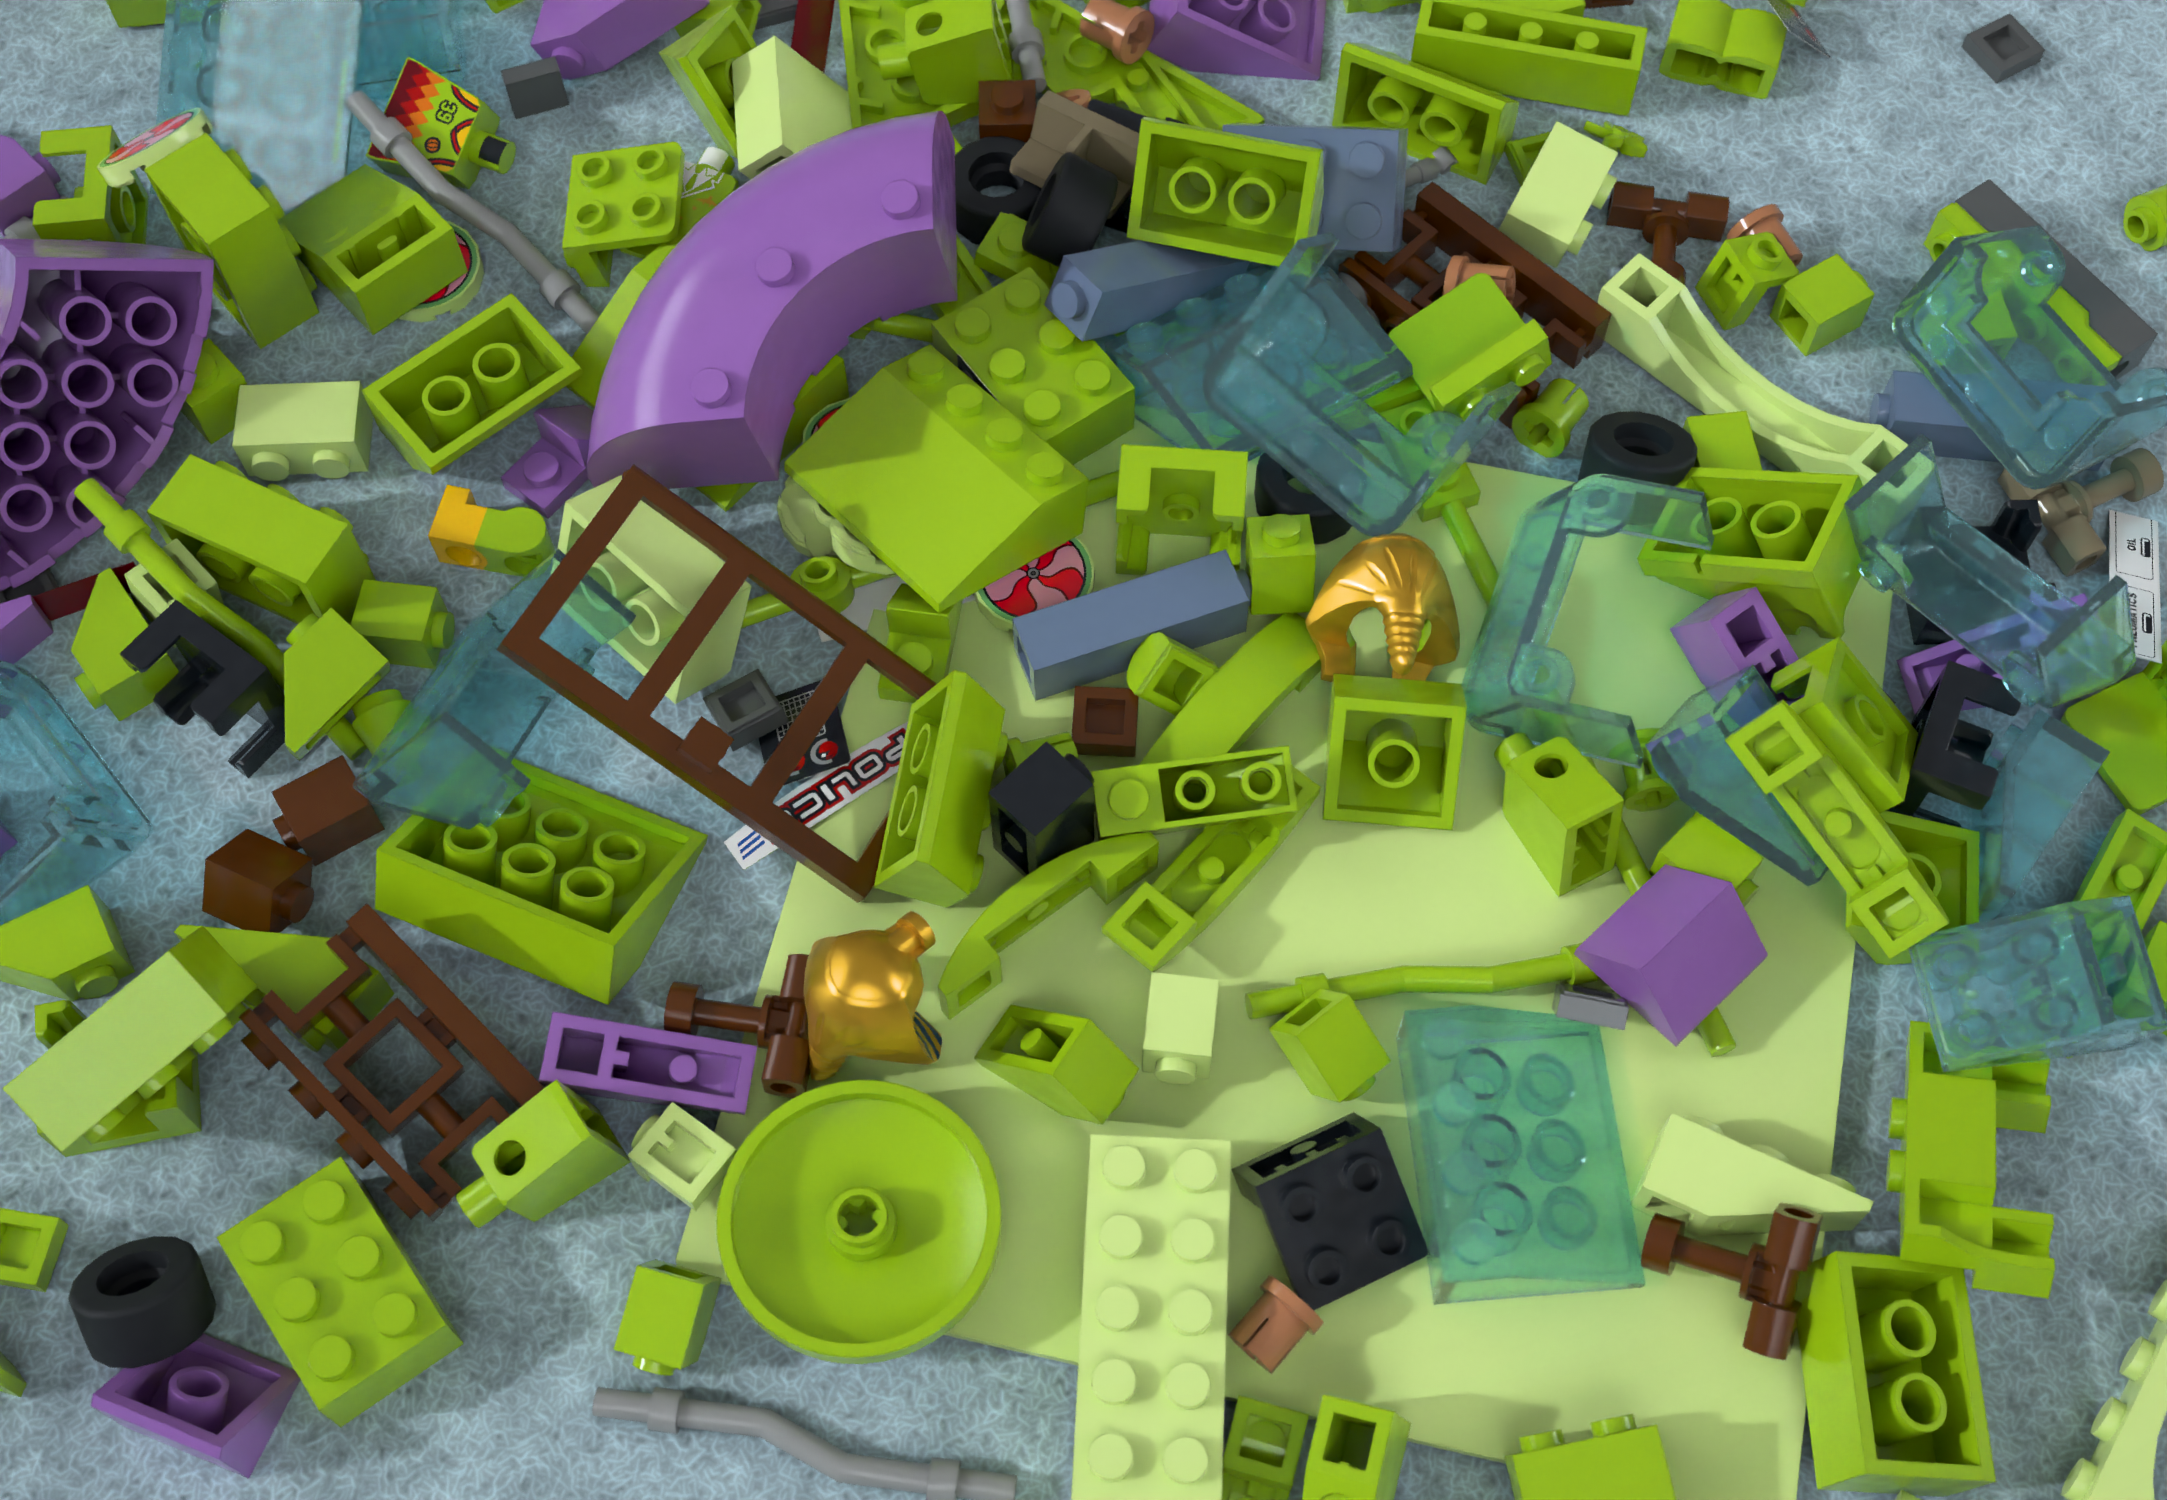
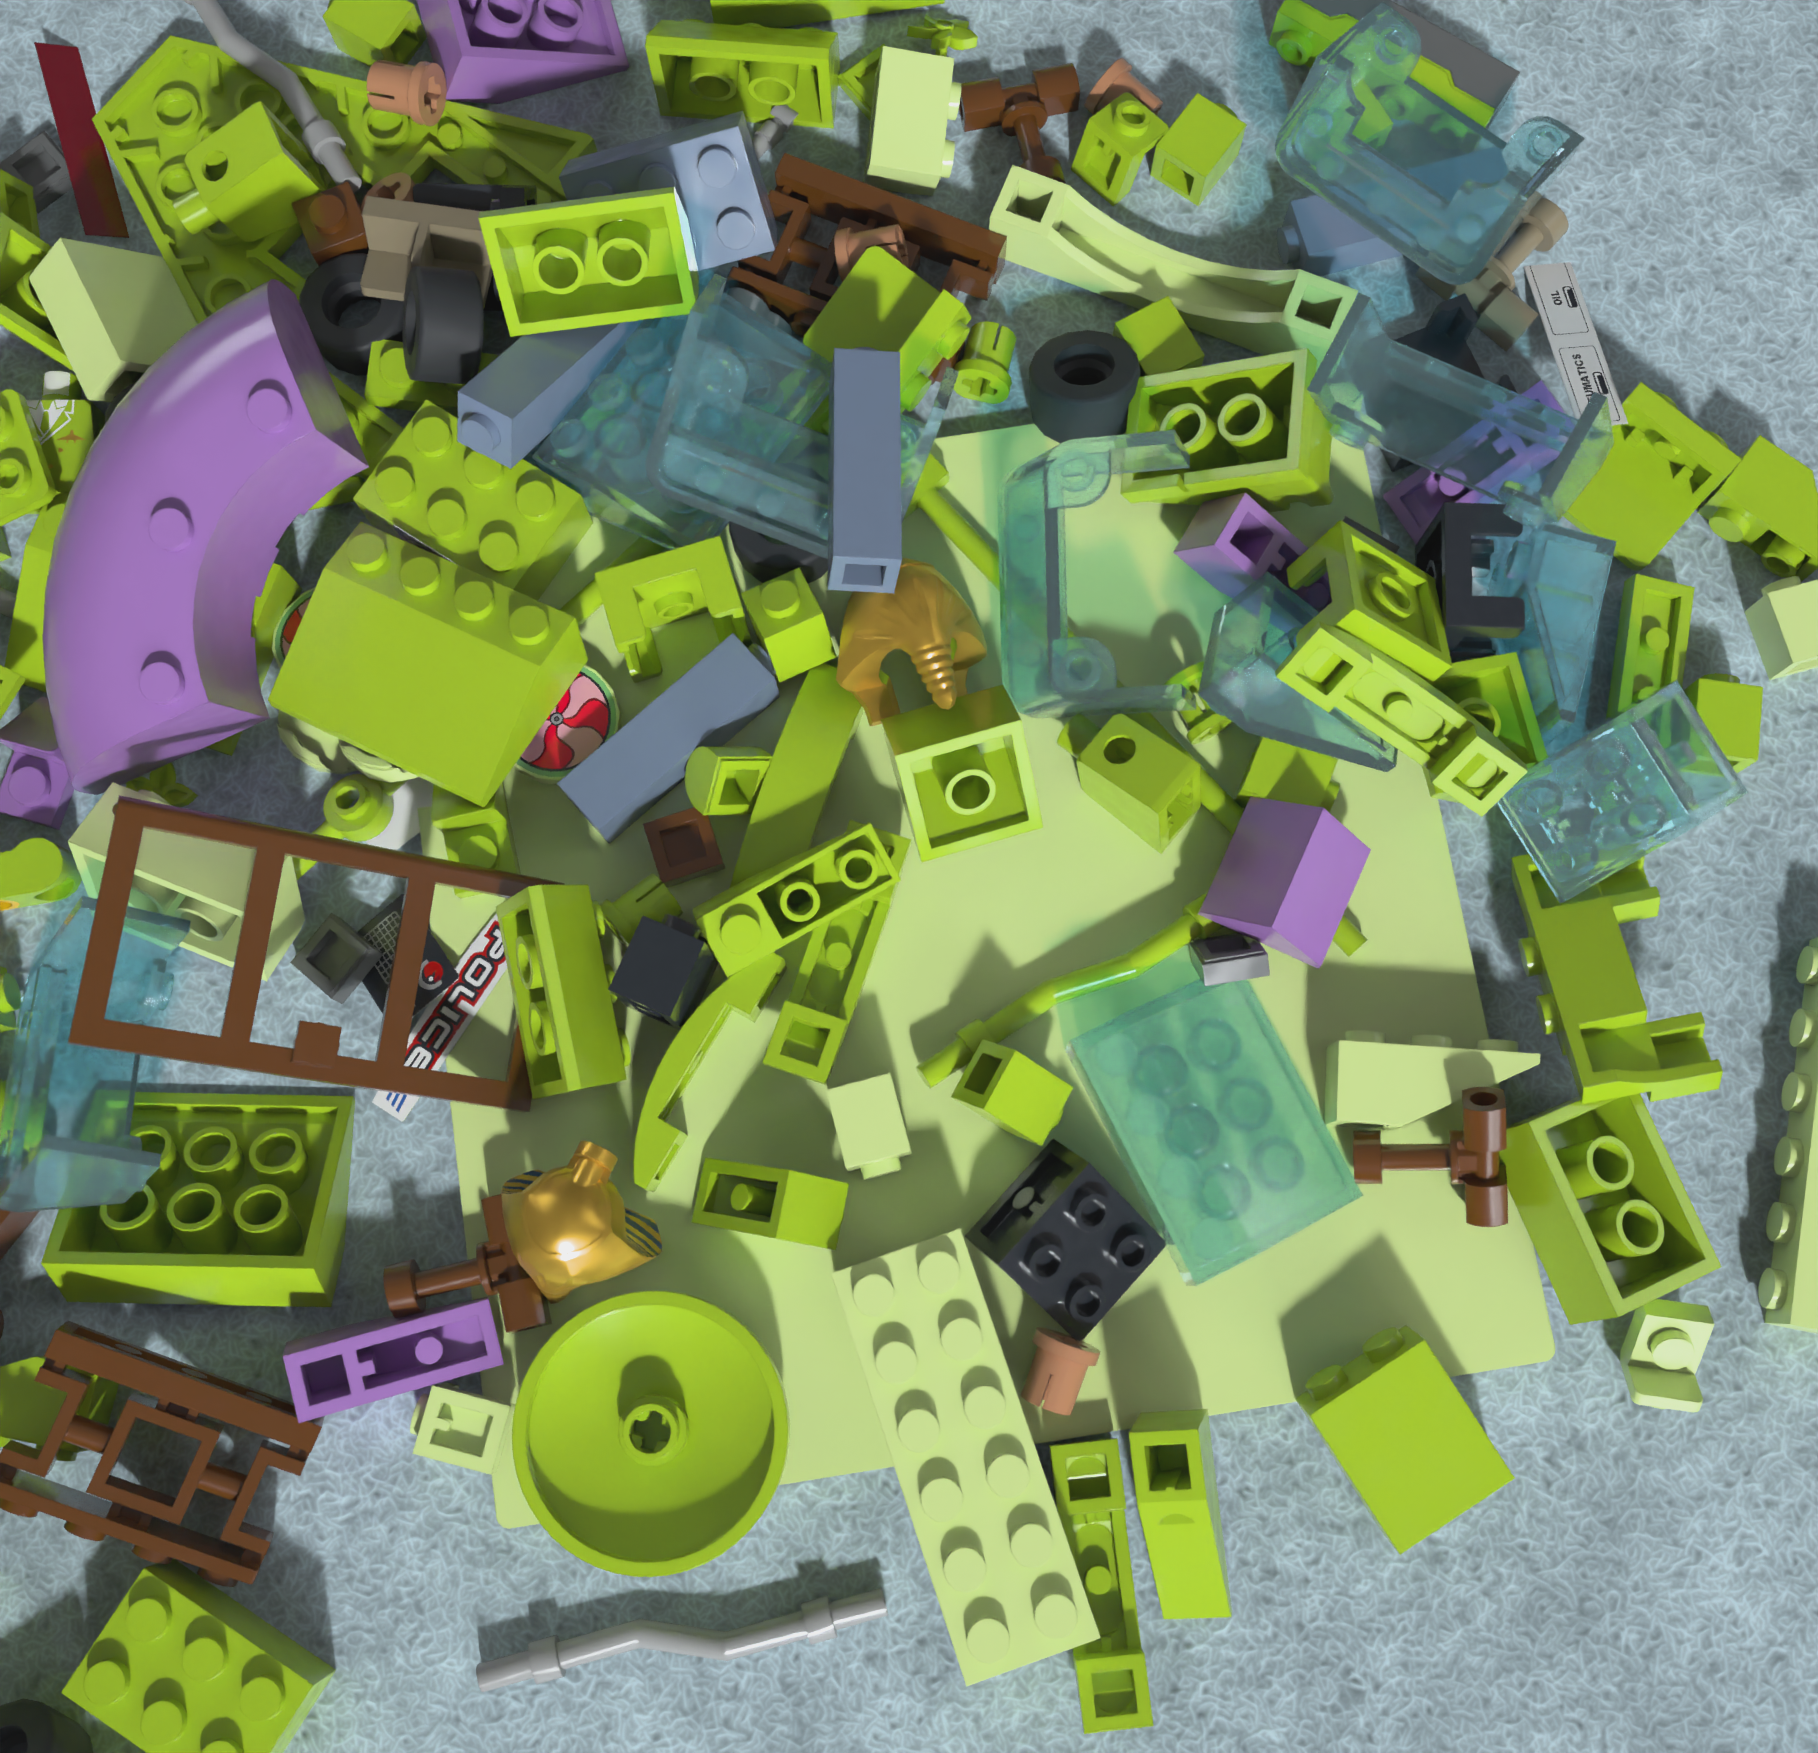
camera: 20 degrees left, 15 degrees up
(541, 1157) = (333, 1483): lime torso -> none
(666, 1316) = (511, 1580): lime brick -> none
(1401, 438) = (864, 471): none -> sand blue brick

